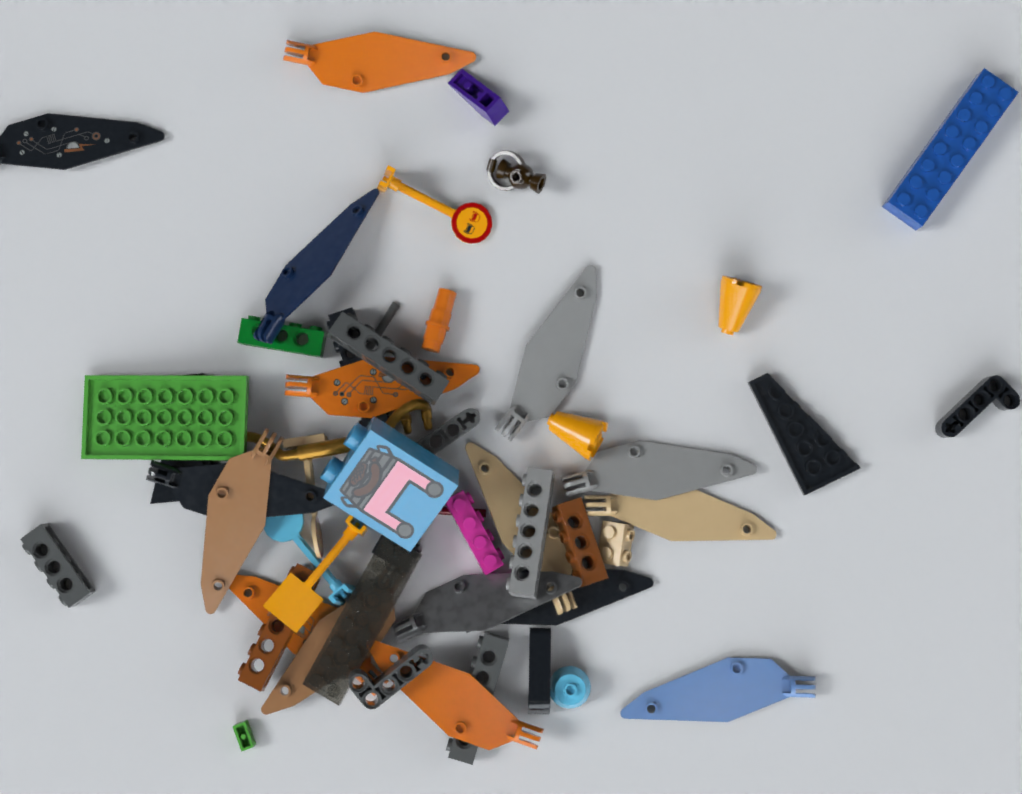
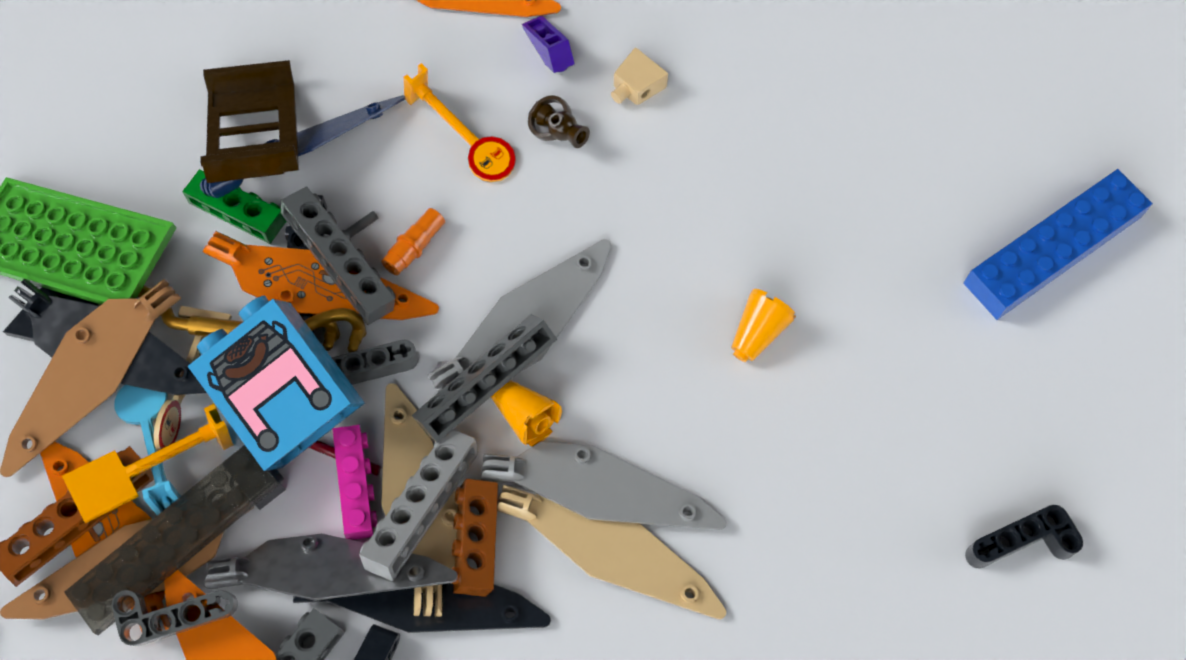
camera: 15 degrees right, 20 degrees down
(248, 232) = (246, 91): none -> dark brown piece
(542, 420) = (484, 377): none -> dark grey brick
(566, 107) = (638, 79): none -> tan torso
(616, 543) = (521, 557): tan bracket -> none
(804, 444) = (794, 515): black wing -> none

